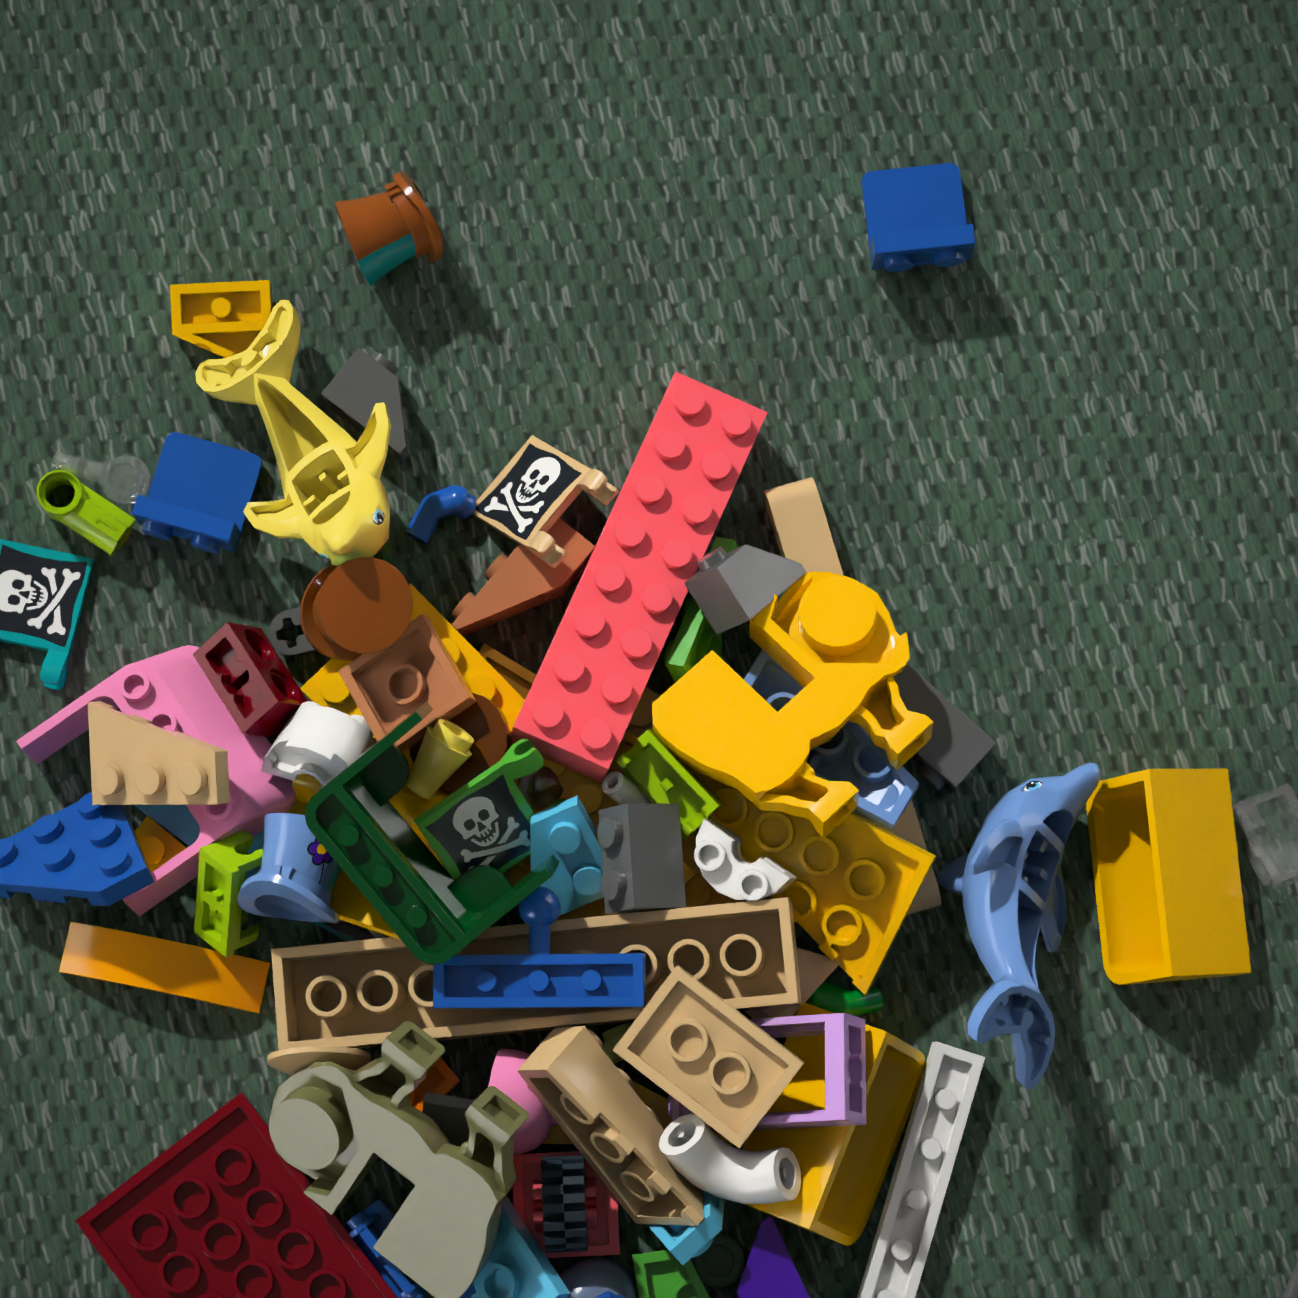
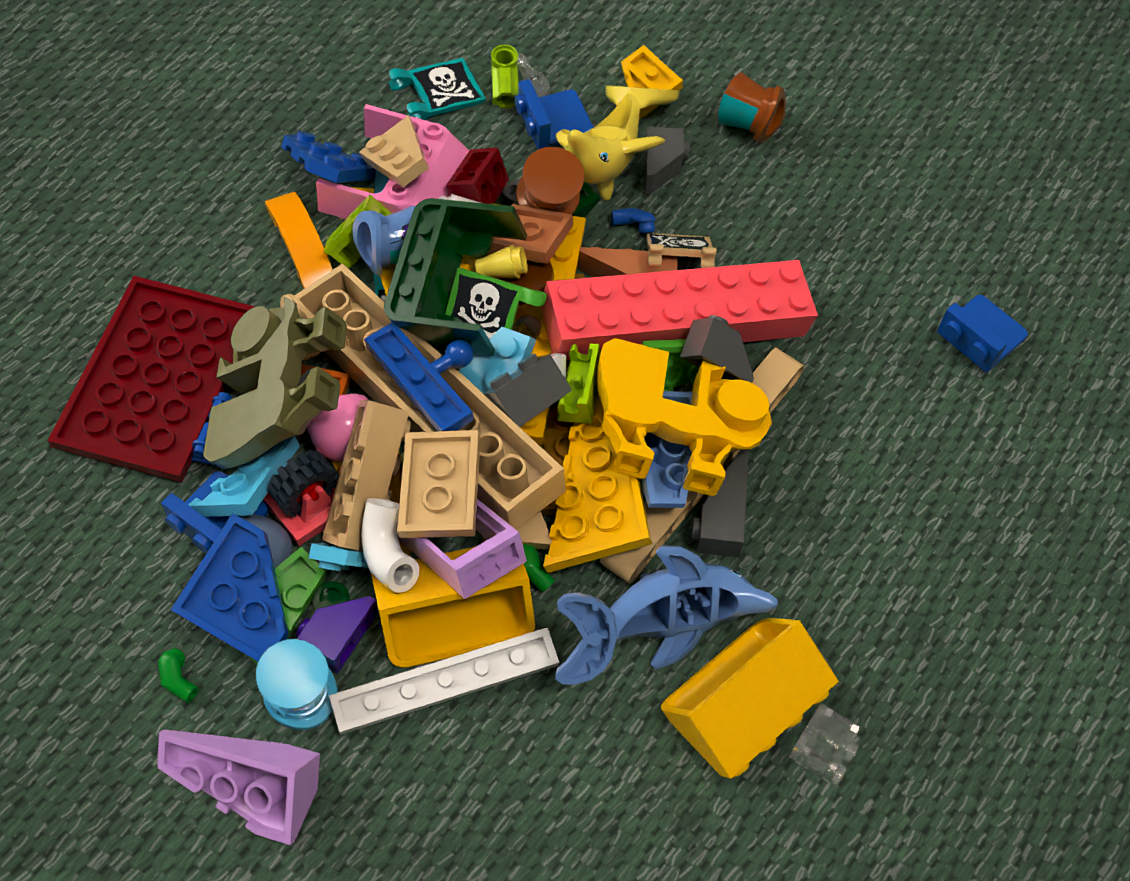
camera: 50 degrees right, 20 degrees down
(729, 873) = (560, 437): white cylinder -> none

